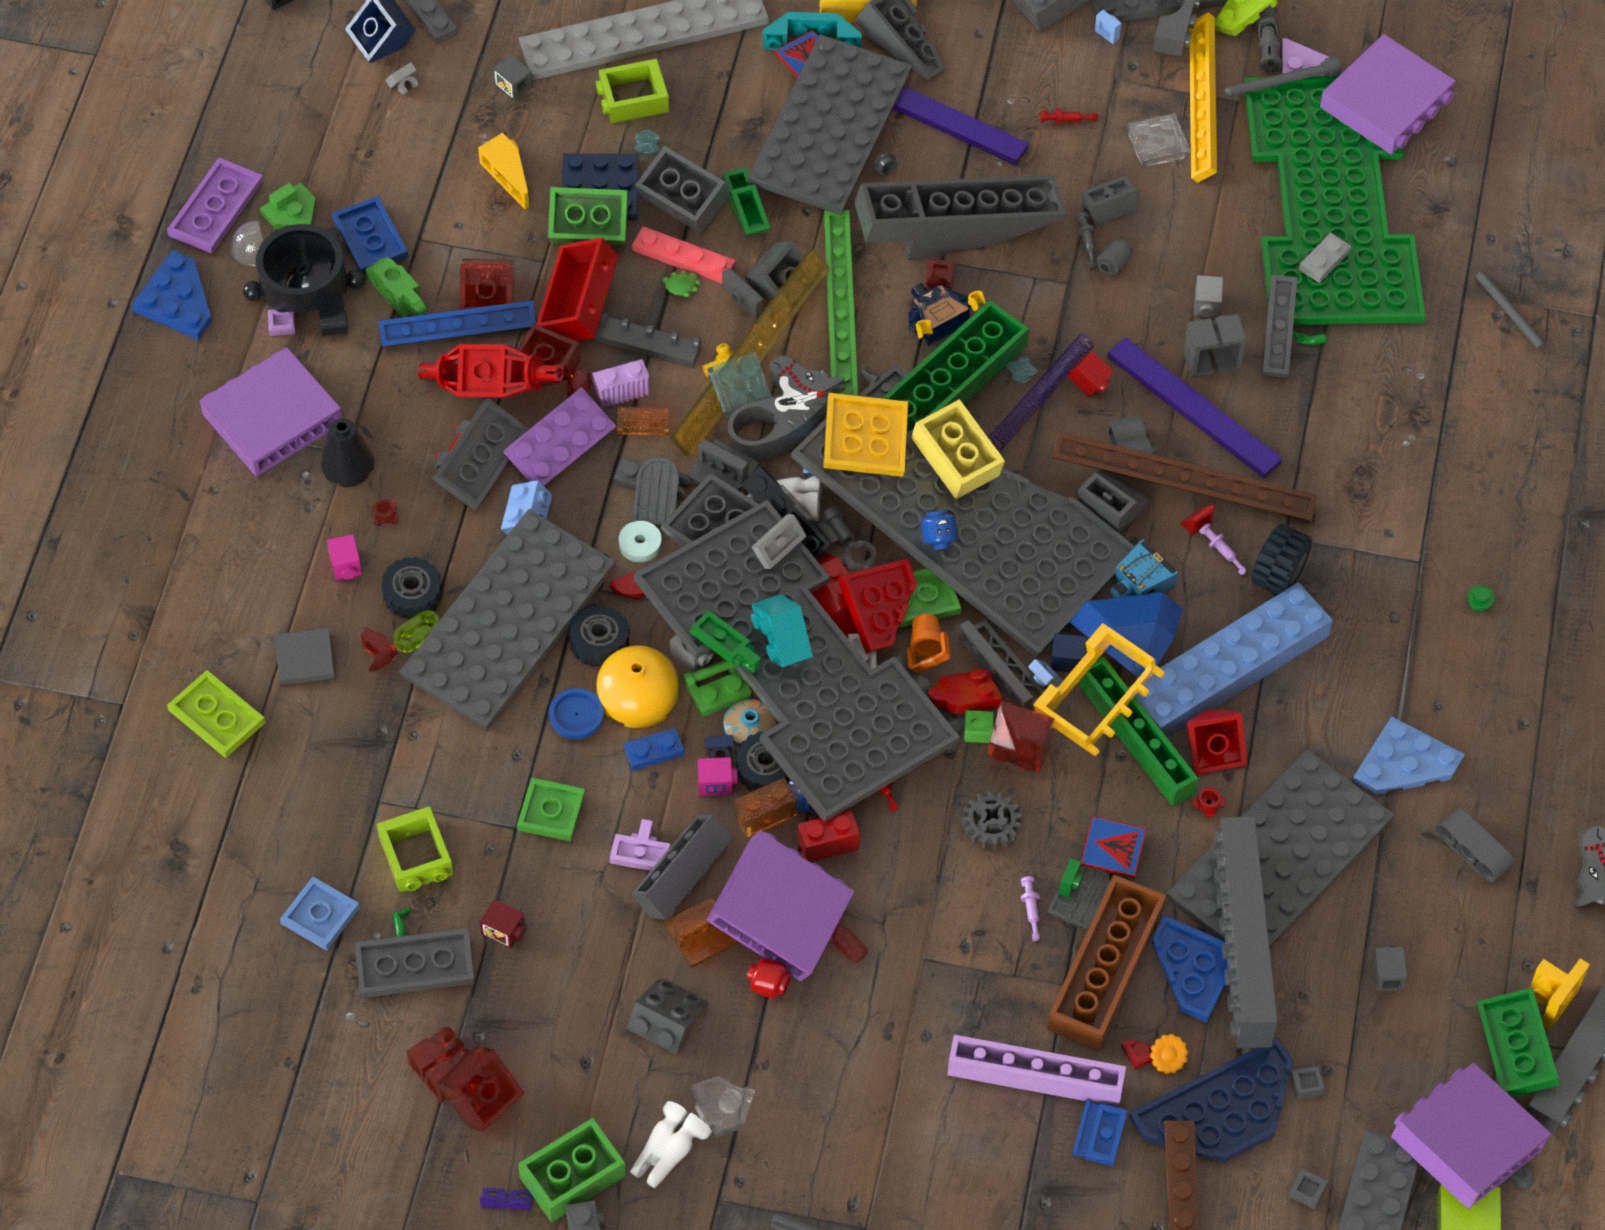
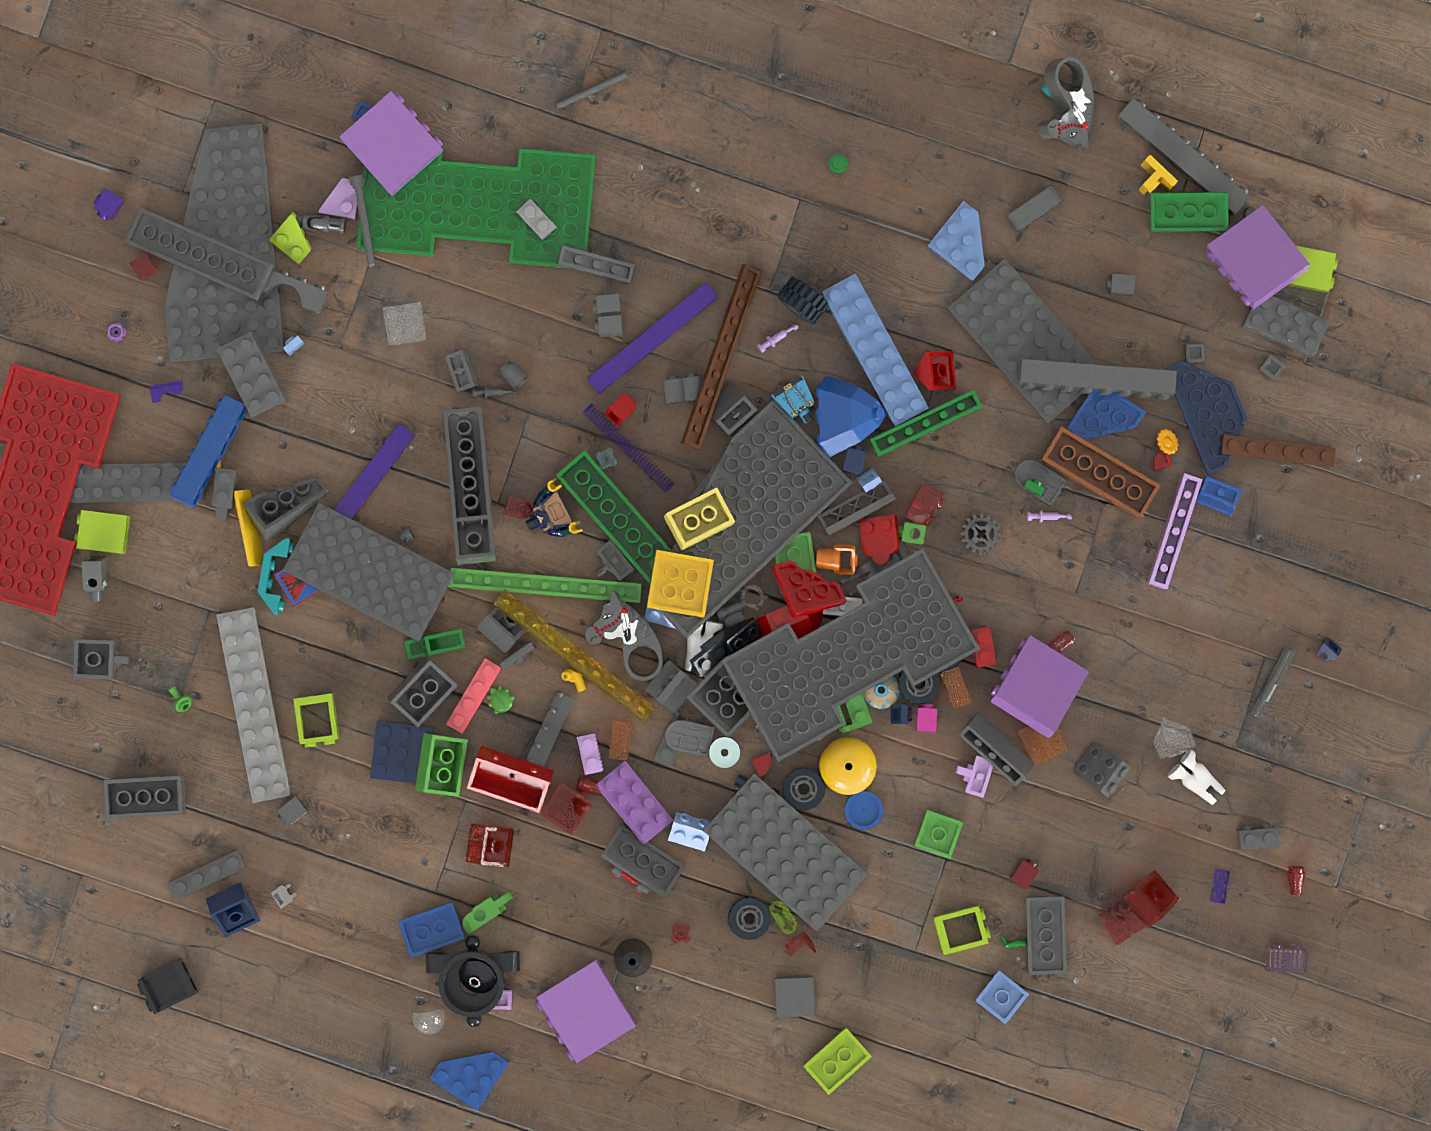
camera: 85 degrees left, 30 degrees up
(215, 205) = (390, 1044): medium lavender plate -> none
(289, 206) = (398, 986): bright green plate -> none
(344, 557) = (719, 964): dark pink brick -> none
(457, 323) = (522, 869): blue plate -> none
(489, 371) = (582, 851): red plate -> none
(503, 162) = (376, 822): yellow slope -> none
(572, 1169) = (1212, 843): bright green brick -> none
(646, 142) = (360, 713): clear light blue plate -> none
(654, 749) = (896, 759): blue plate -> none
(726, 641) = (841, 703): green hinge -> none
(739, 382) = (604, 667): clear light blue plate -> none
(768, 978) = (1086, 700): red head -> none
(779, 541) = (763, 656): light grey plate -> none
(785, 629) = (839, 663): teal brick -> none
(939, 529) = (760, 540): blue head -> none
(1060, 116) = (375, 390): red piece -> none
(1095, 647) = (909, 488): yellow hinge -> none
(1113, 846) = (1011, 454): piece -> none
(1198, 519) = (749, 352): red slope -> none
(1203, 98) = (371, 283): yellow plate -> none
(1208, 296) = (559, 311): light grey brick -> none
(1212, 795) = (979, 388): red plate -> none
(1310, 339) = (601, 242): green piece -> none

